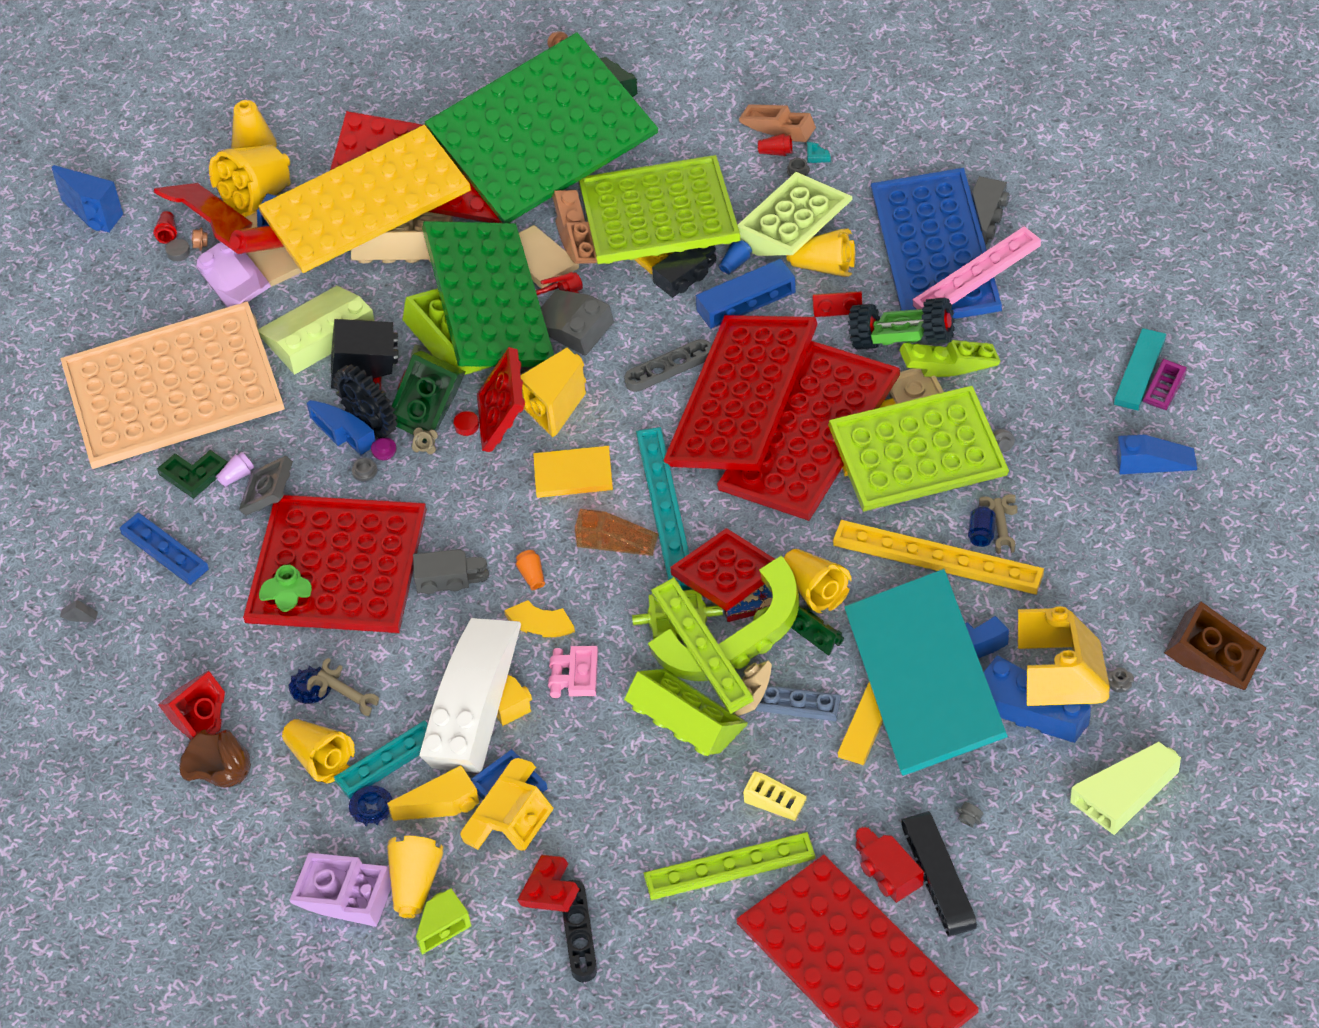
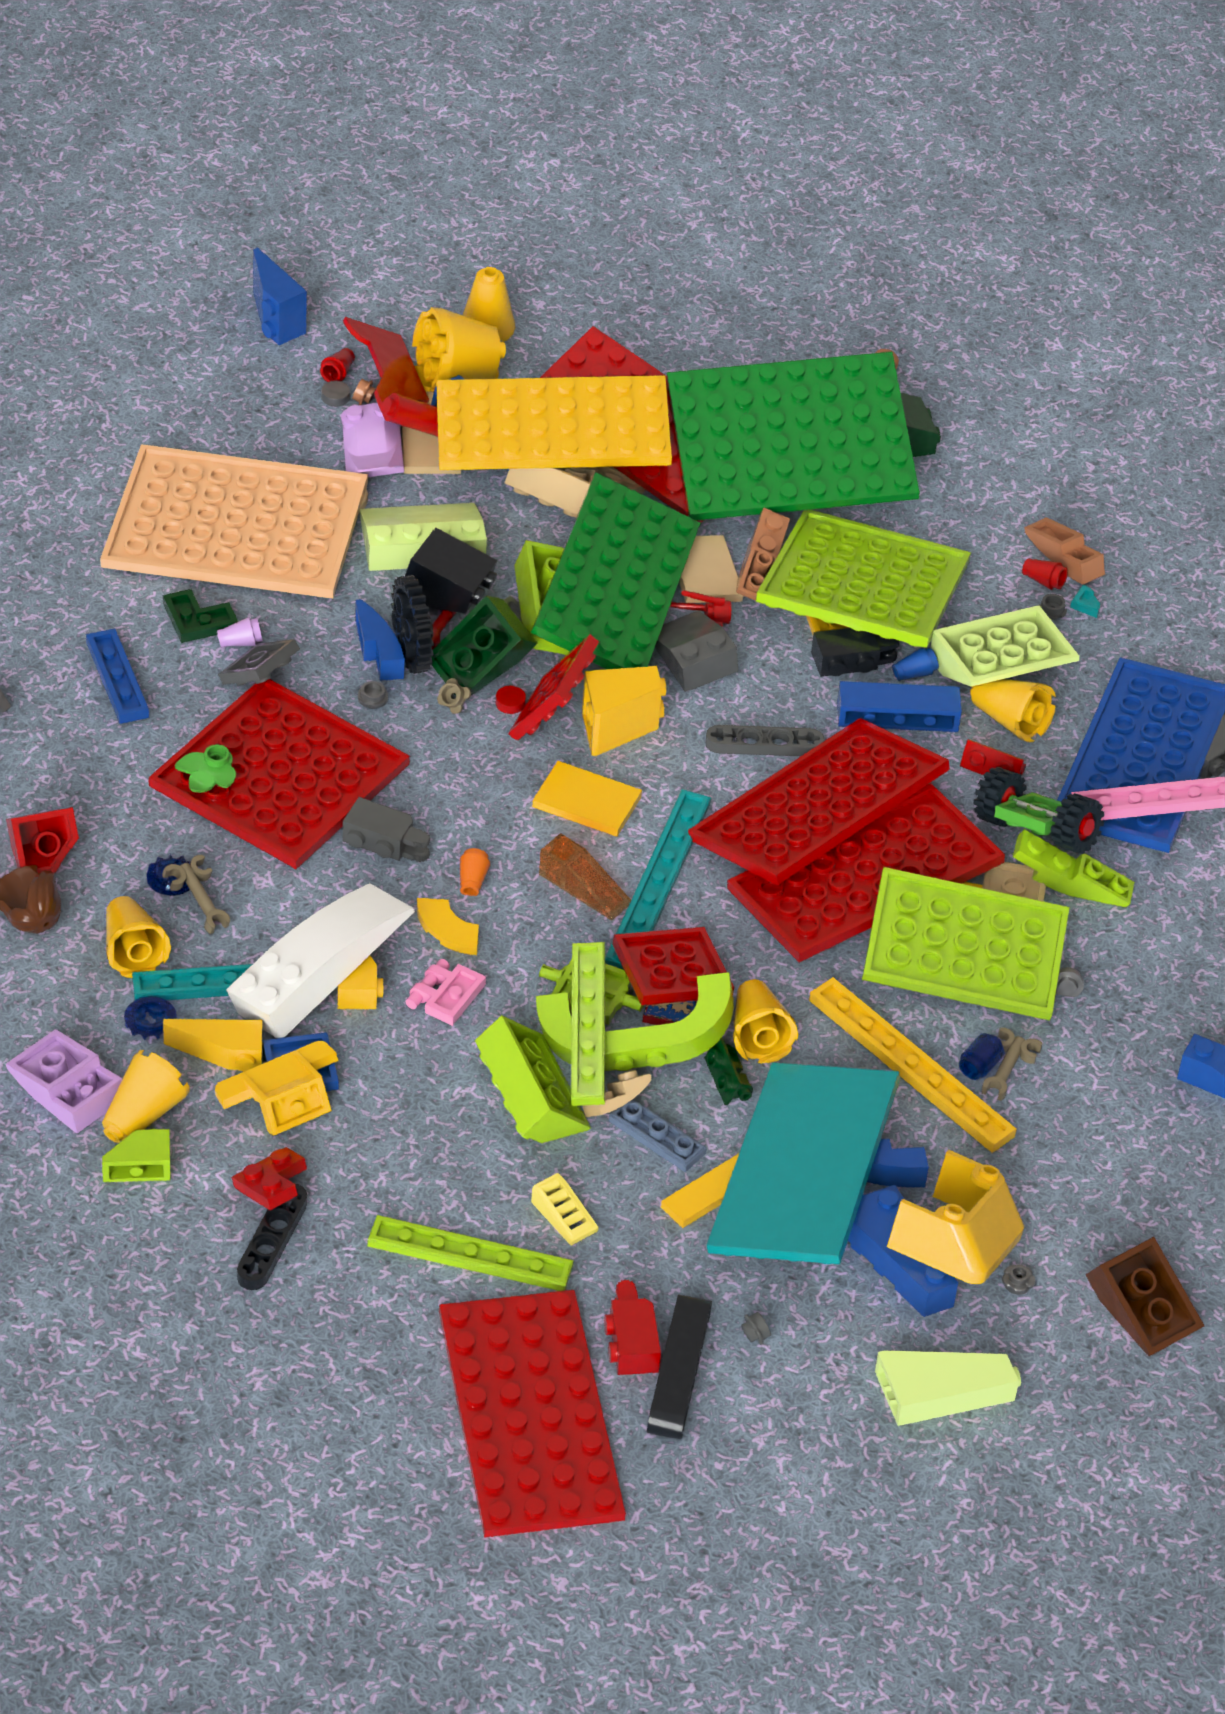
camera: 20 degrees right, 5 degrees down
(383, 448) = (407, 684): magenta plate -> none

